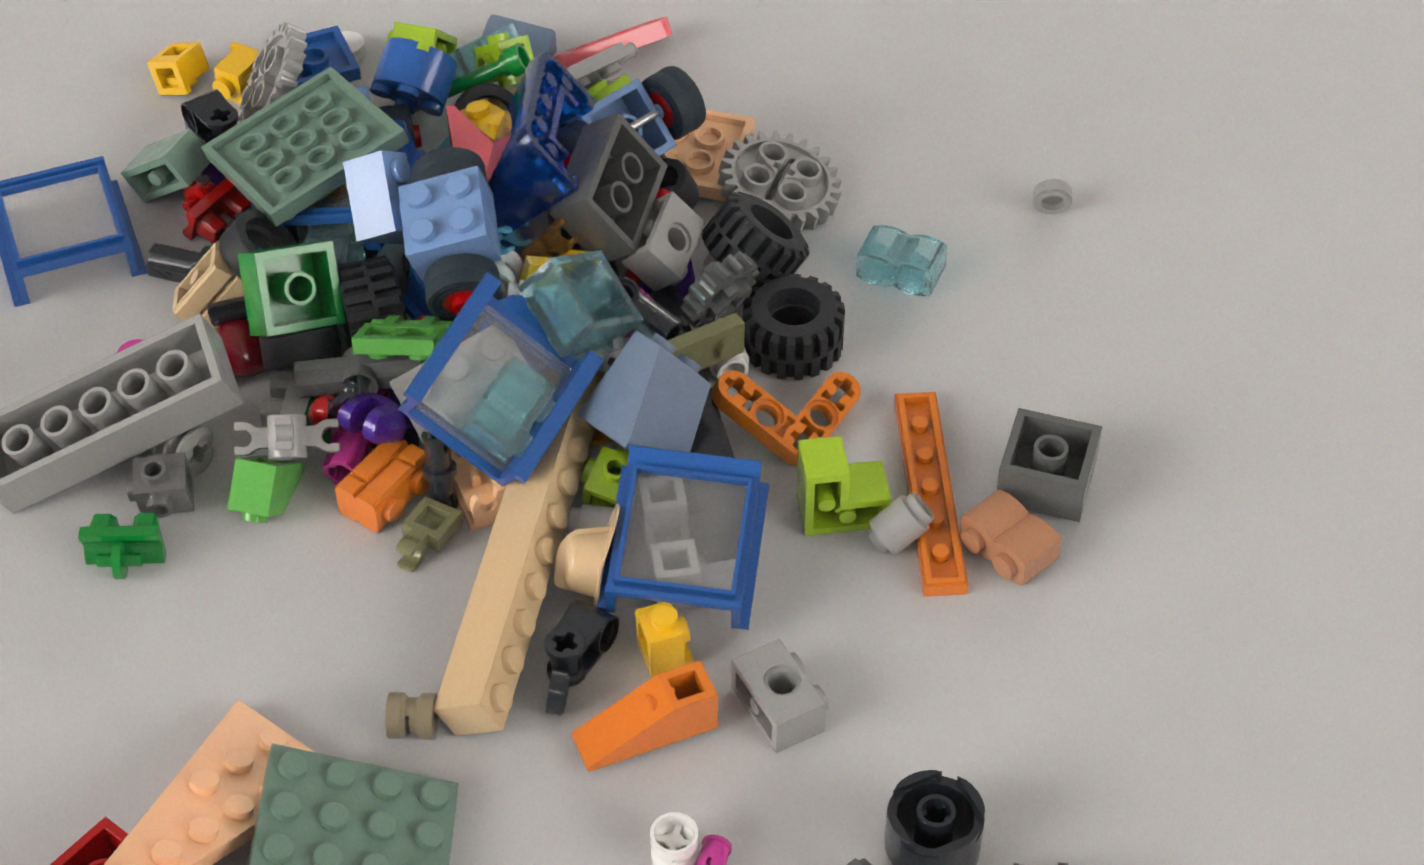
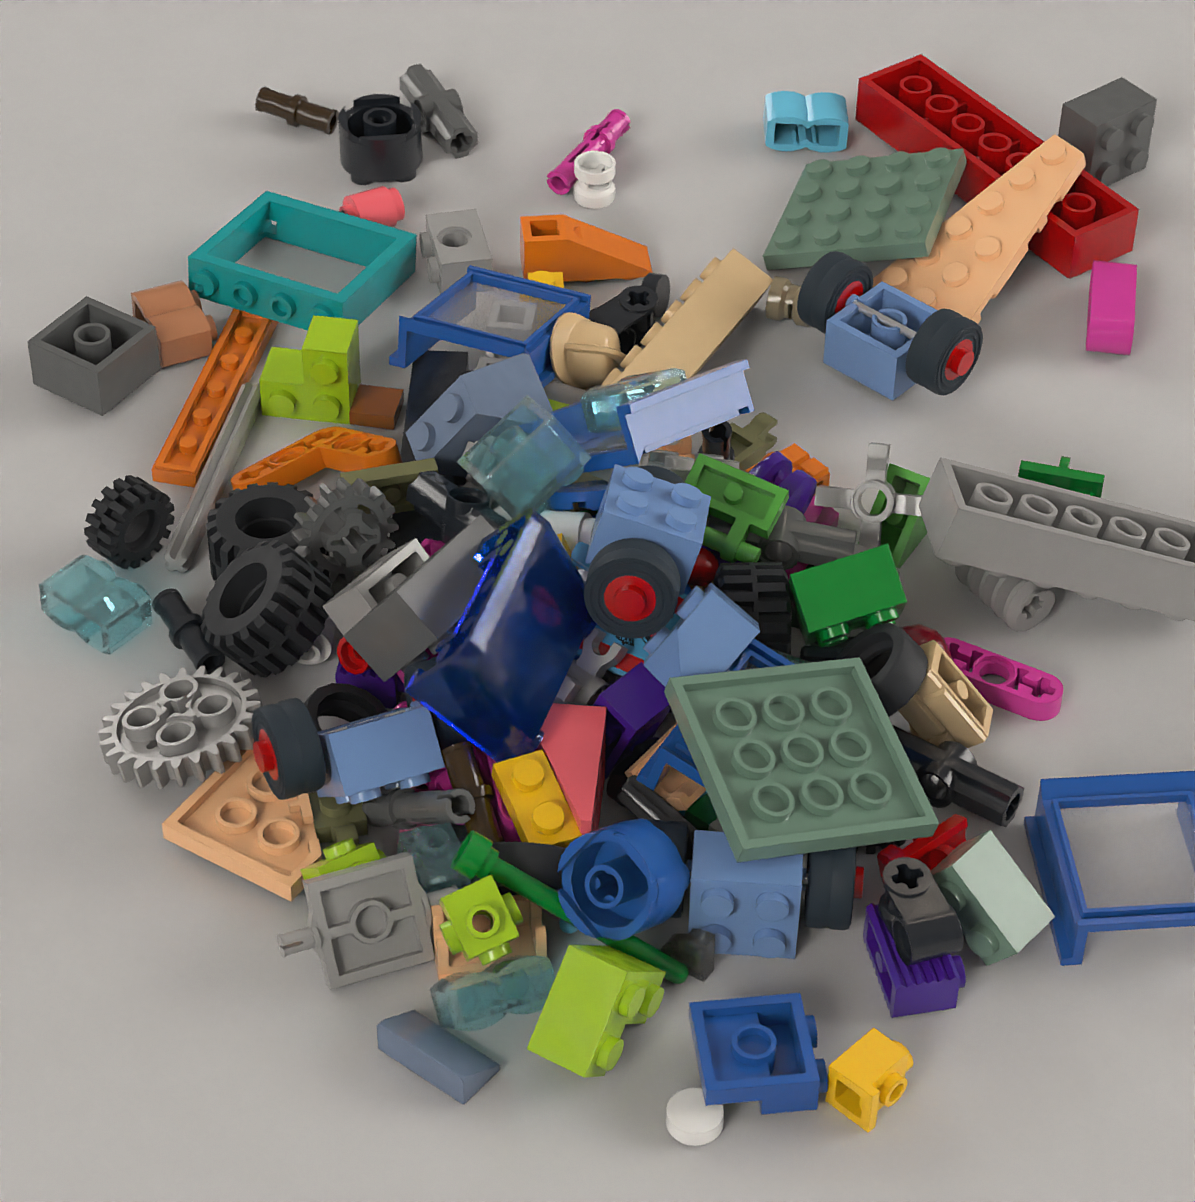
camera: 165 degrees left, 5 degrees down
(66, 793) = (1111, 307): none -> dark pink beam
(178, 67) = (969, 1094): yellow brick -> none
(274, 69) = (813, 925): light grey gear -> none
(297, 657) = (884, 333): none -> brick
(329, 405) = (822, 511): hinge -> none
(639, 35) = (308, 1005): coral beam -> none
(783, 508) = (376, 406): none -> dark orange tile
(823, 262) = (186, 630): none -> black pin
(880, 402) = (213, 478): none -> light grey axle
(896, 735) = (376, 205): none -> coral brick
(900, 523) = (263, 332): light grey brick -> none
(910, 308) = (129, 522): none -> black tyre
(911, 686) = (383, 250): none -> teal window

